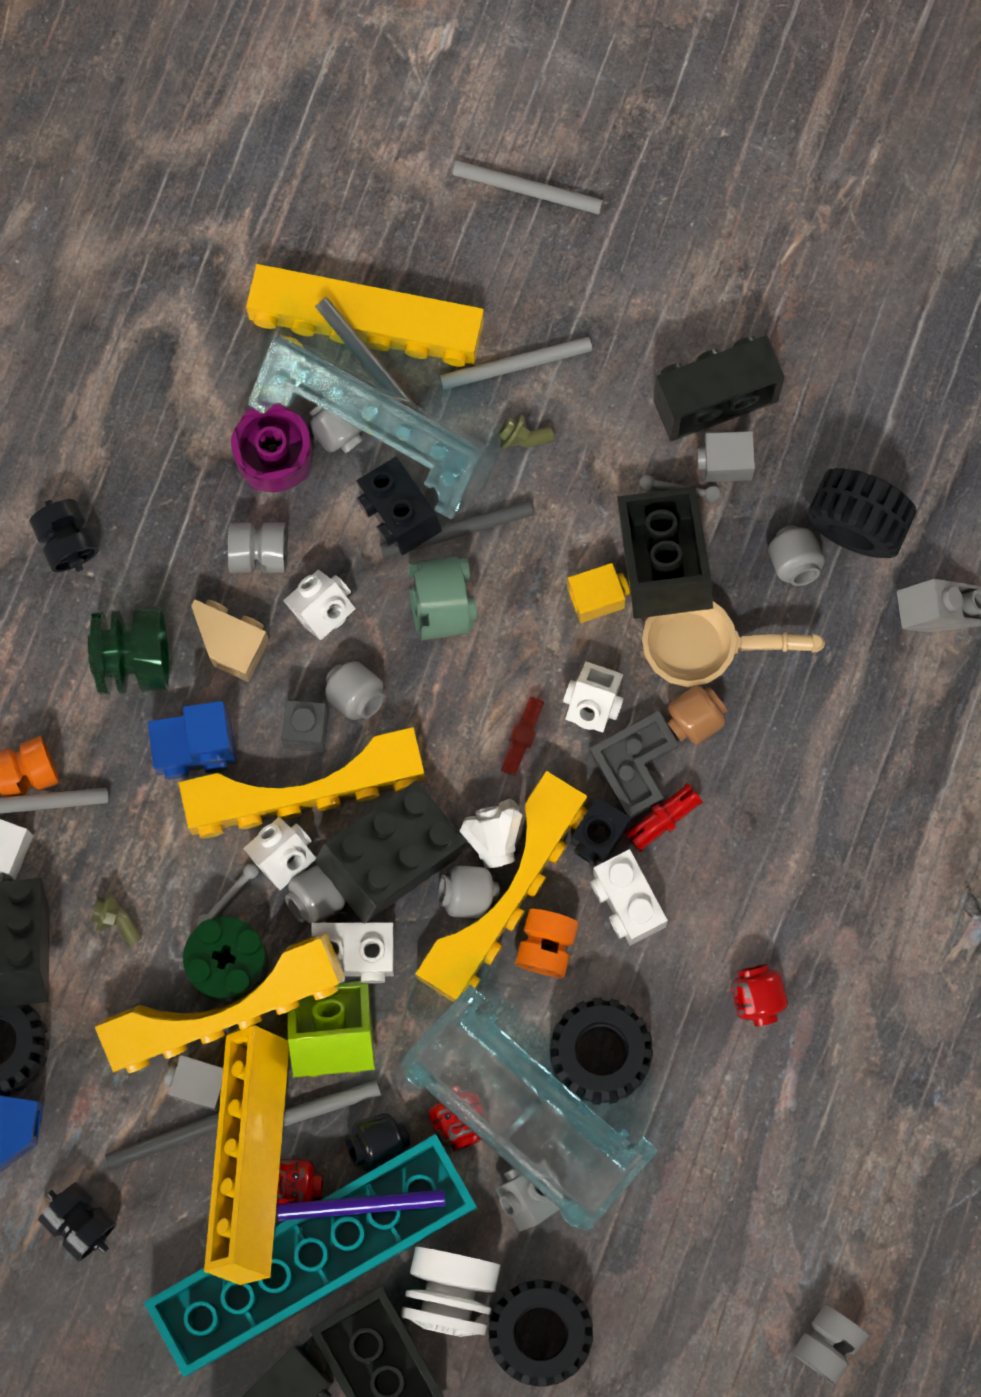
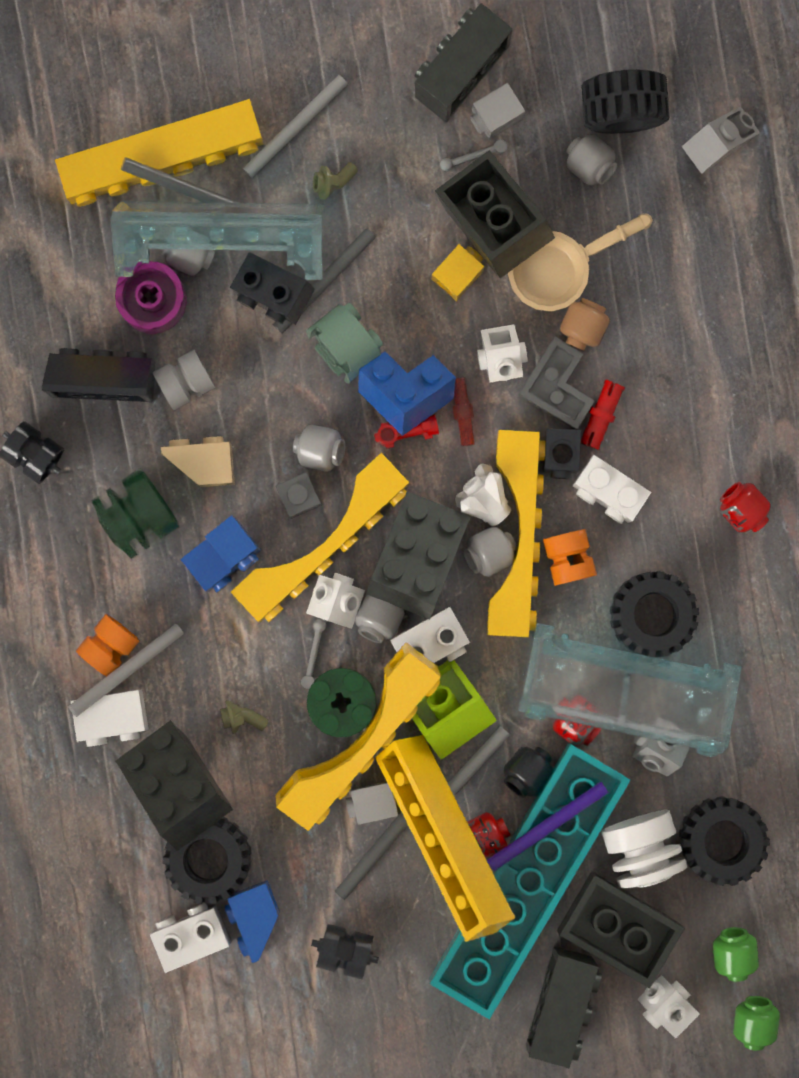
camera: 30 degrees left, 10 degrees up
(175, 498) = (99, 376): none -> black slope
(320, 603) = (256, 396): white brick -> none
(432, 718) = (388, 434): none -> red bar
(472, 686) = (403, 396): none -> blue brick

